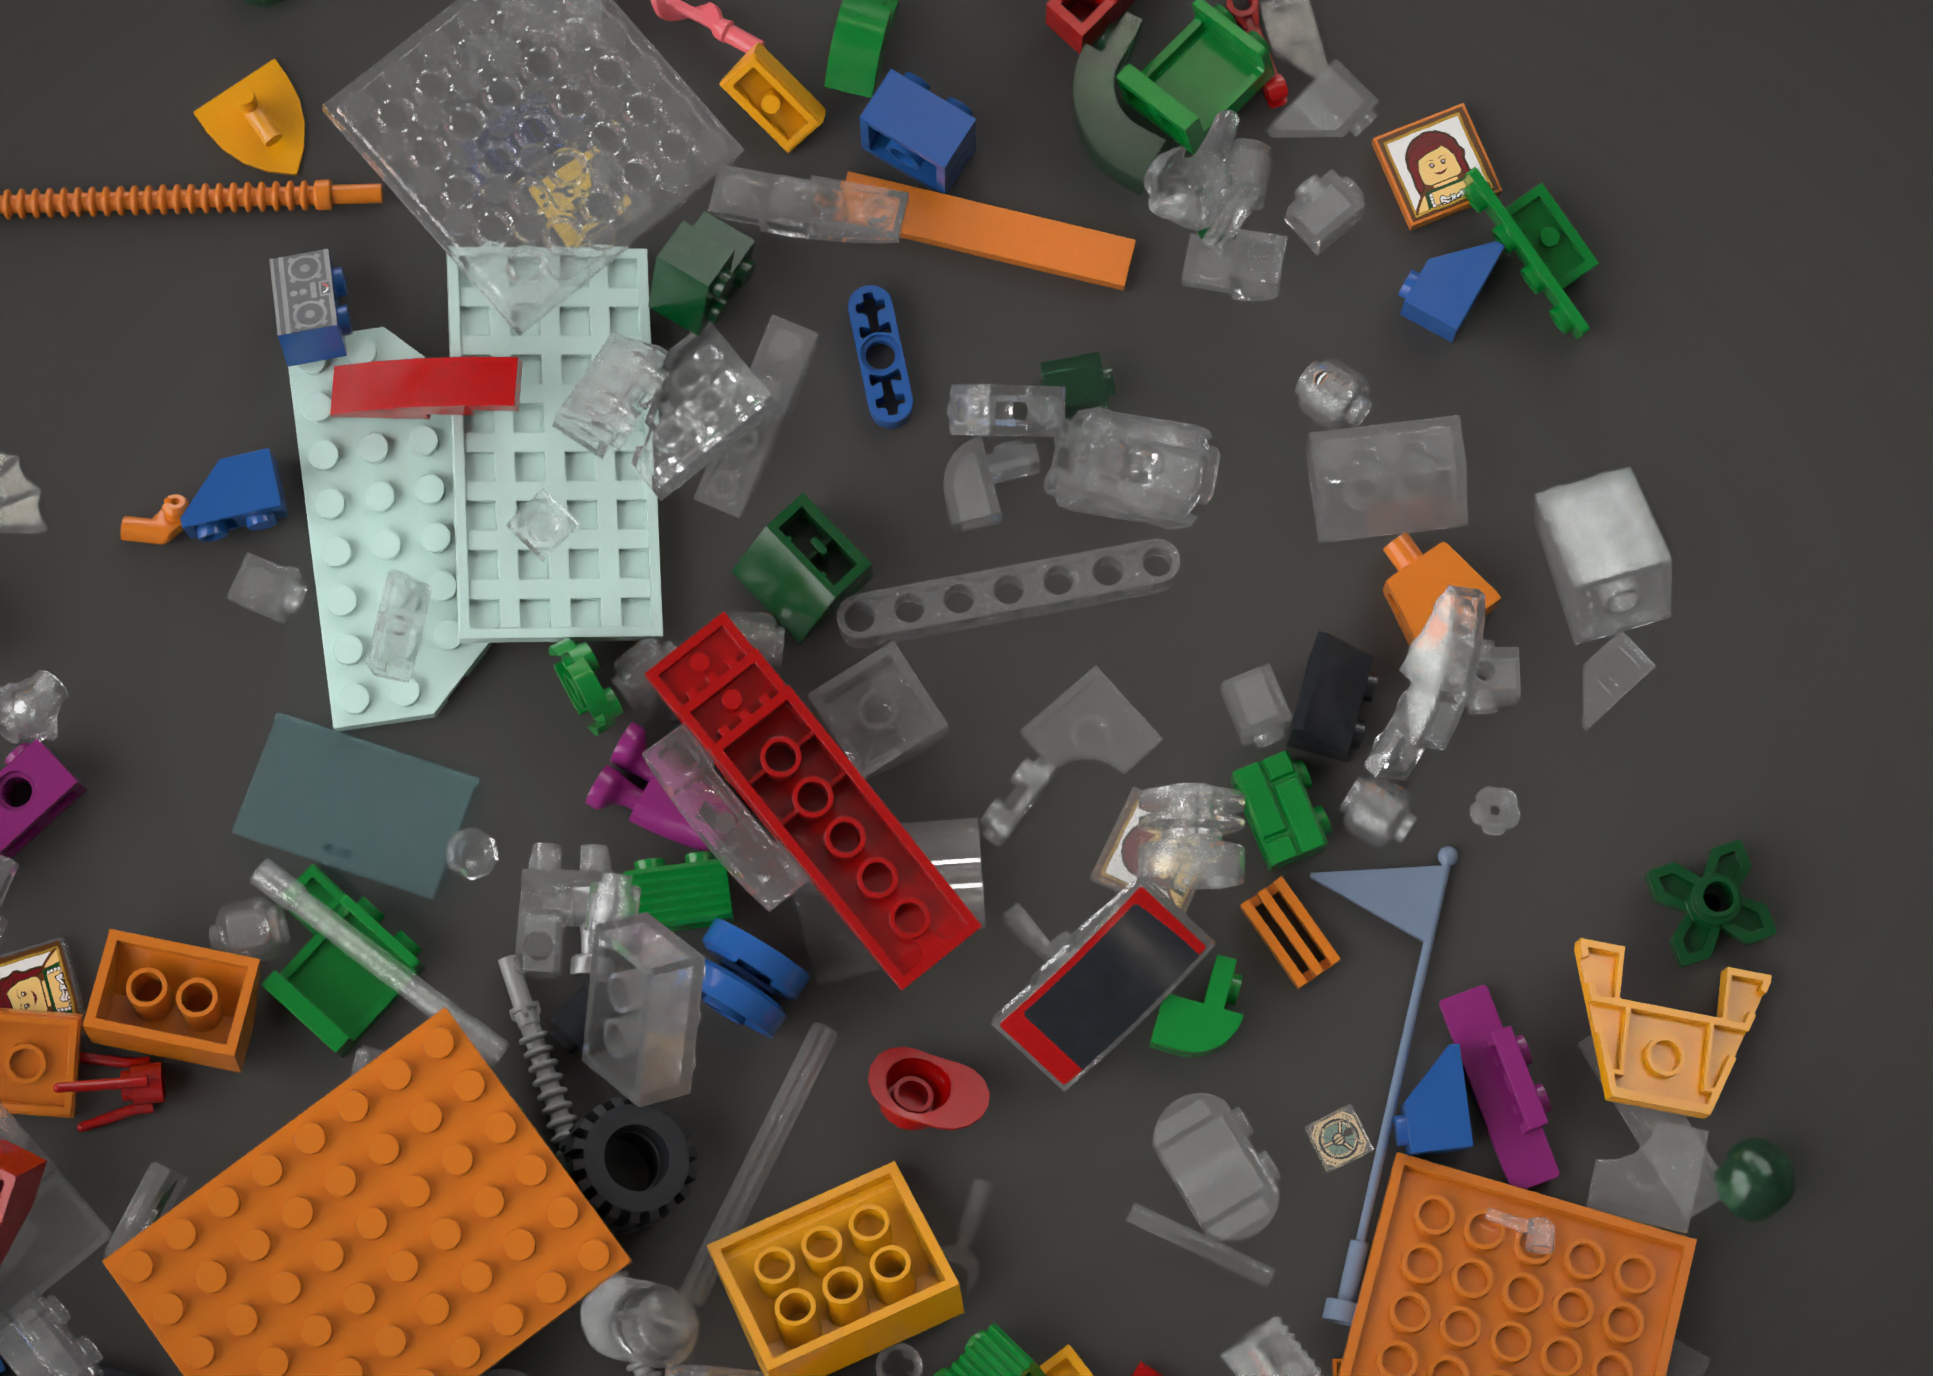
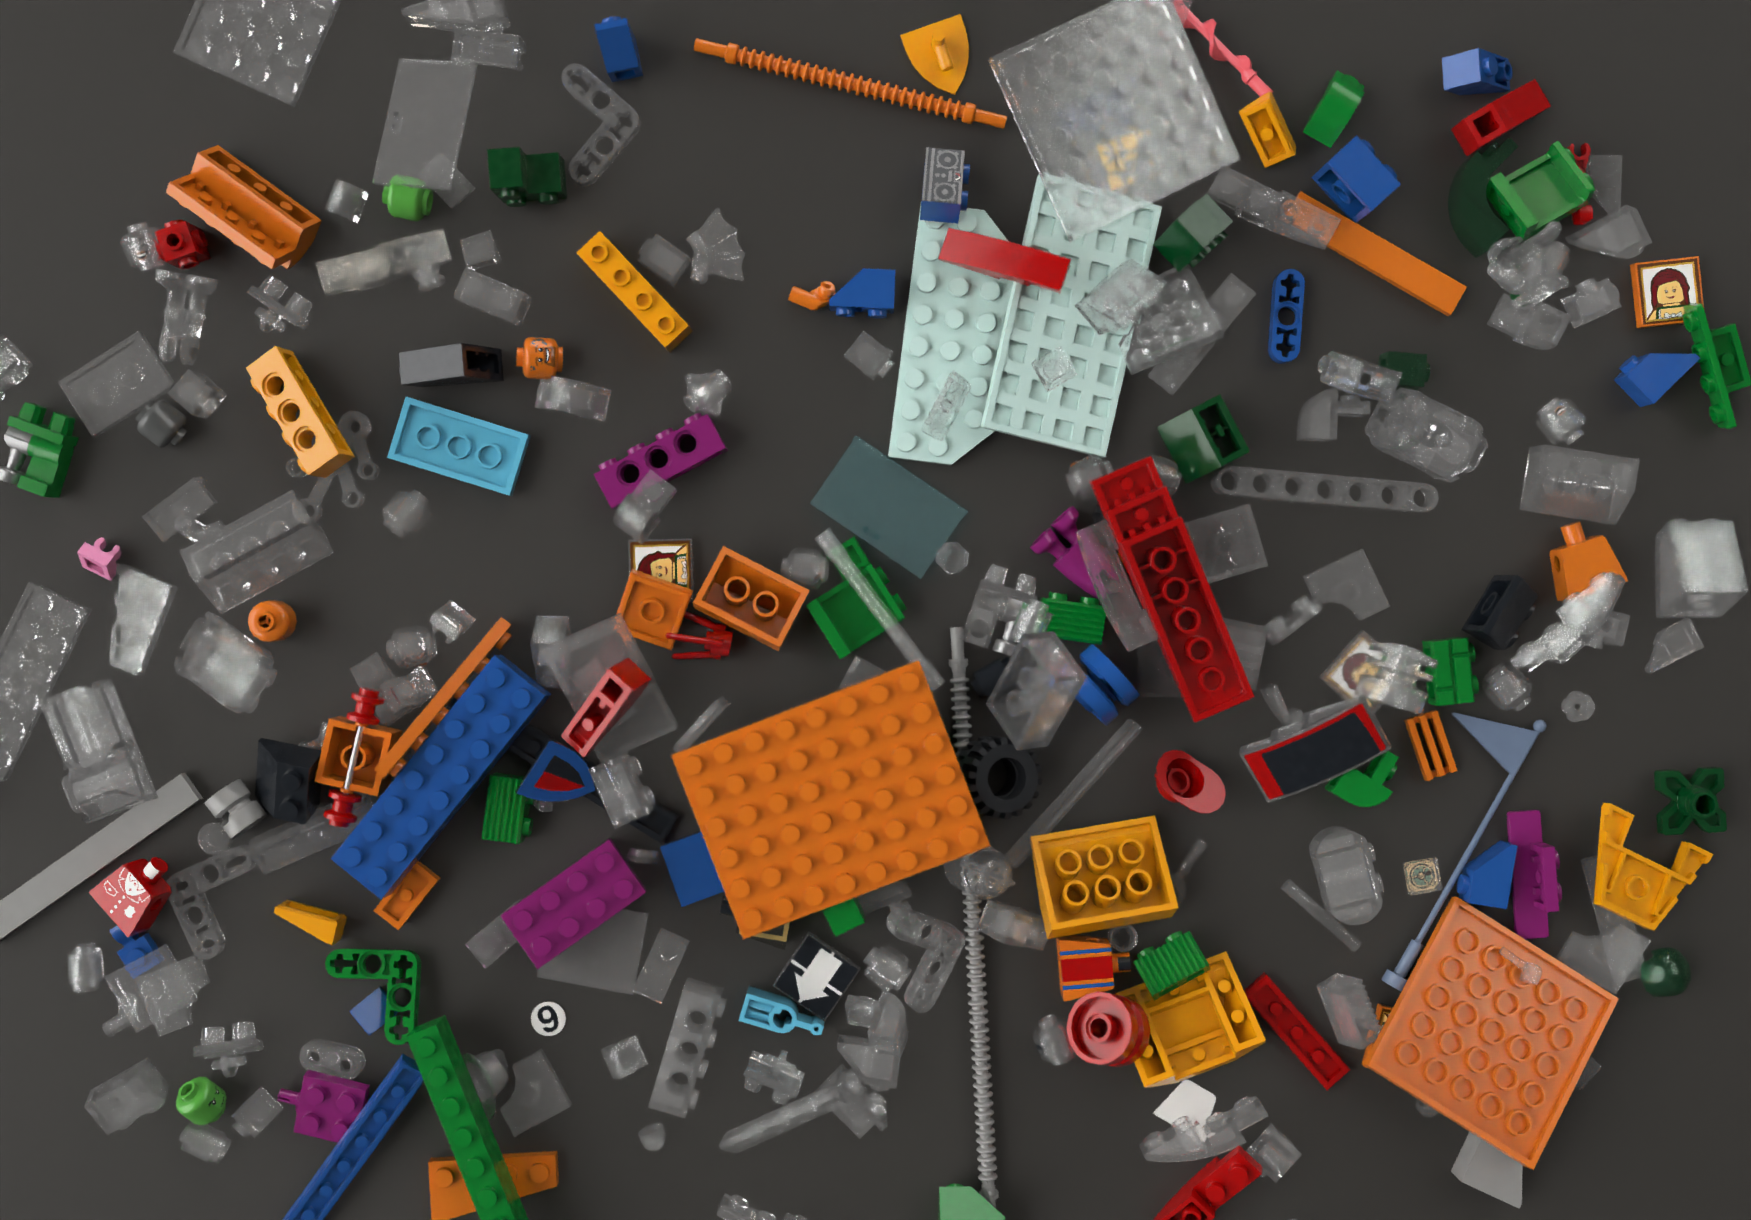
camera: 15 degrees right, 10 degrees up
(582, 686) = (1048, 475): green plate -> none
(1257, 706) = (1454, 603): clear brick -> none

